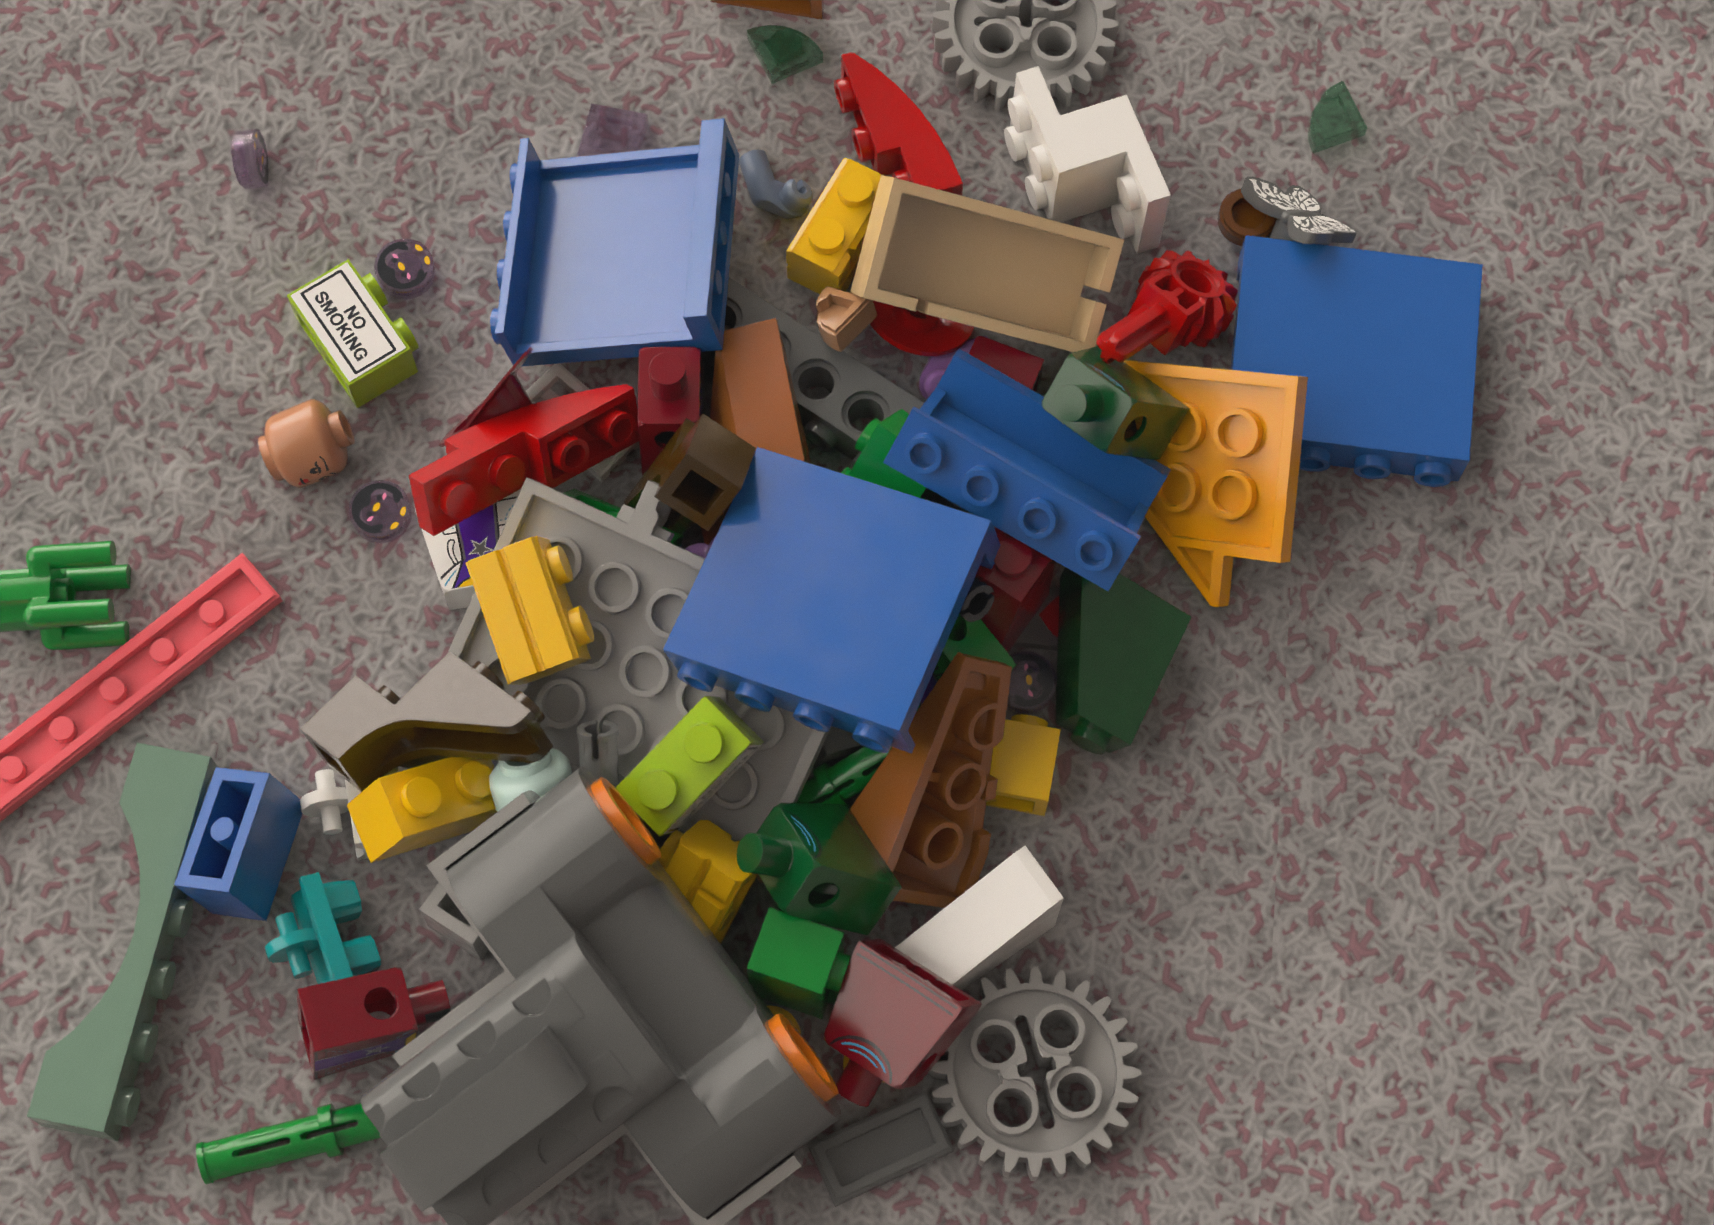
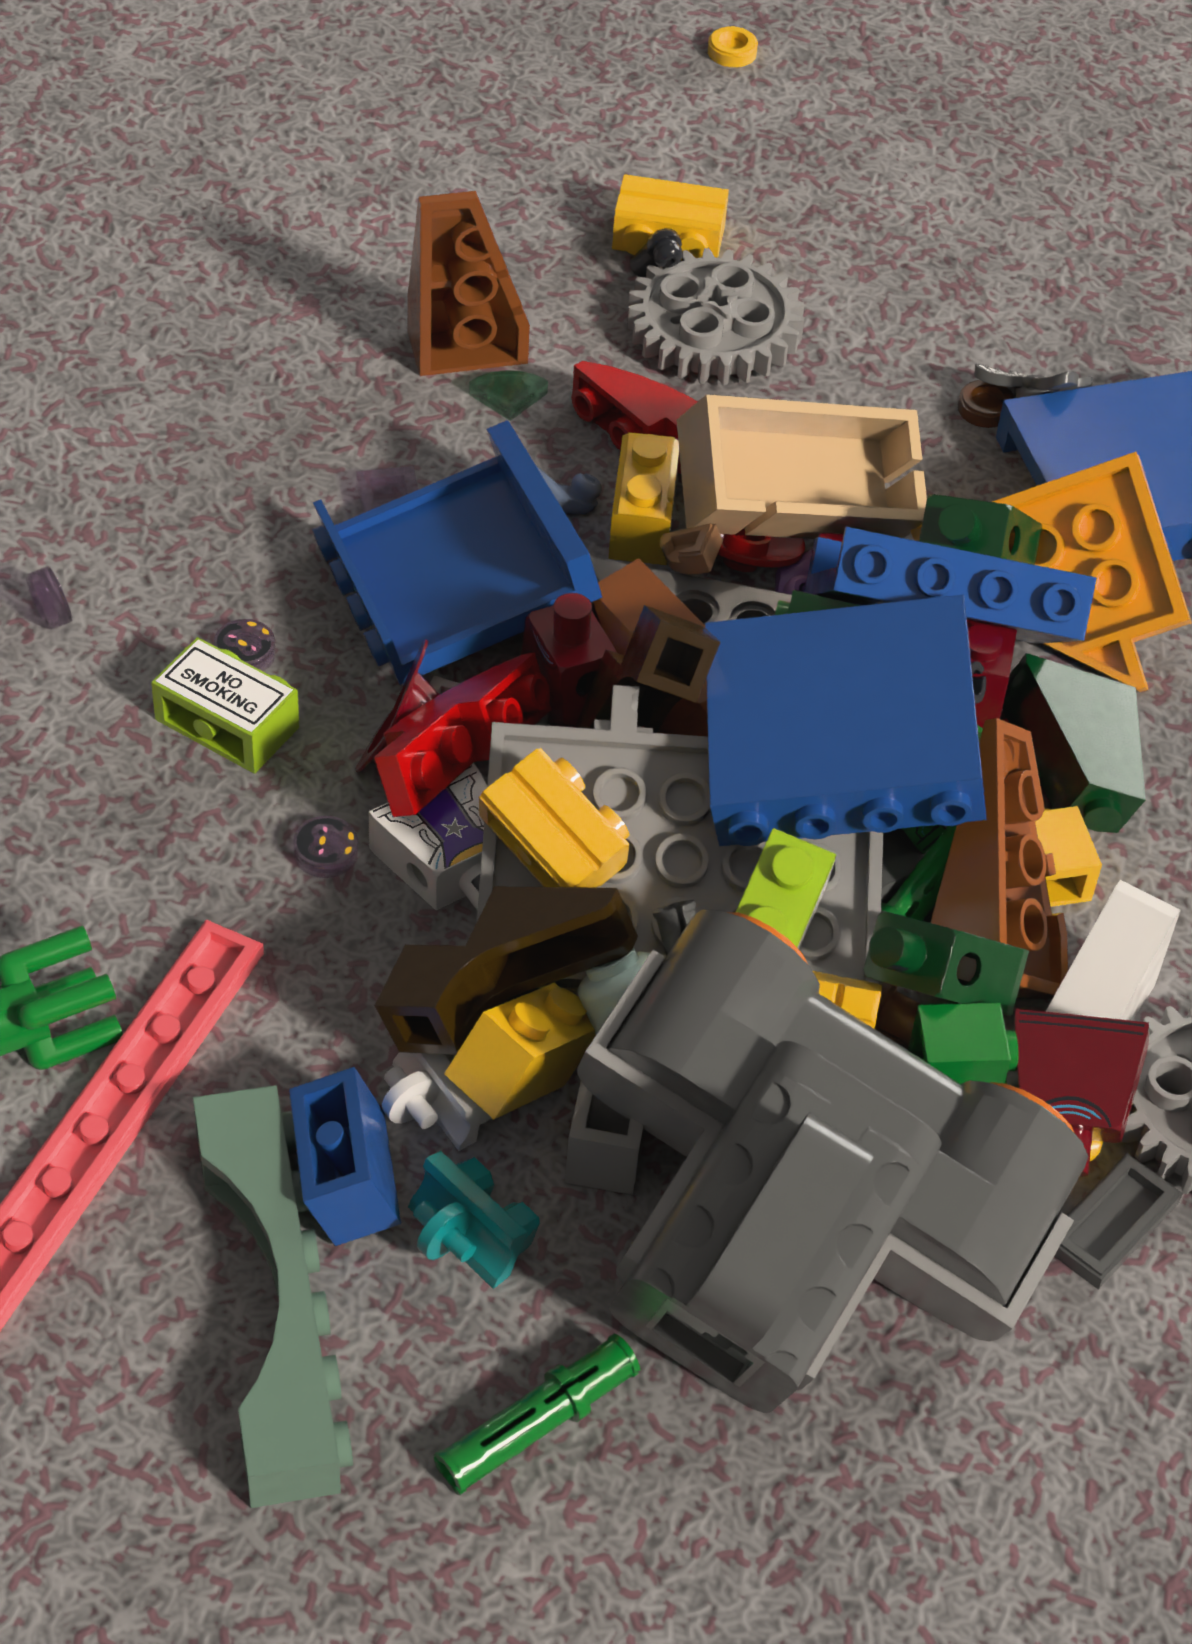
camera: 25 degrees left, 20 degrees down
(306, 443) = (226, 806): nougat head -> none
(339, 1022) = (550, 1271): dark red torso -> none
(1087, 161) = (839, 364): white bracket -> none
(1175, 305) = (977, 464): red gear -> none
(1335, 119) = (1015, 317): clear green tile -> none

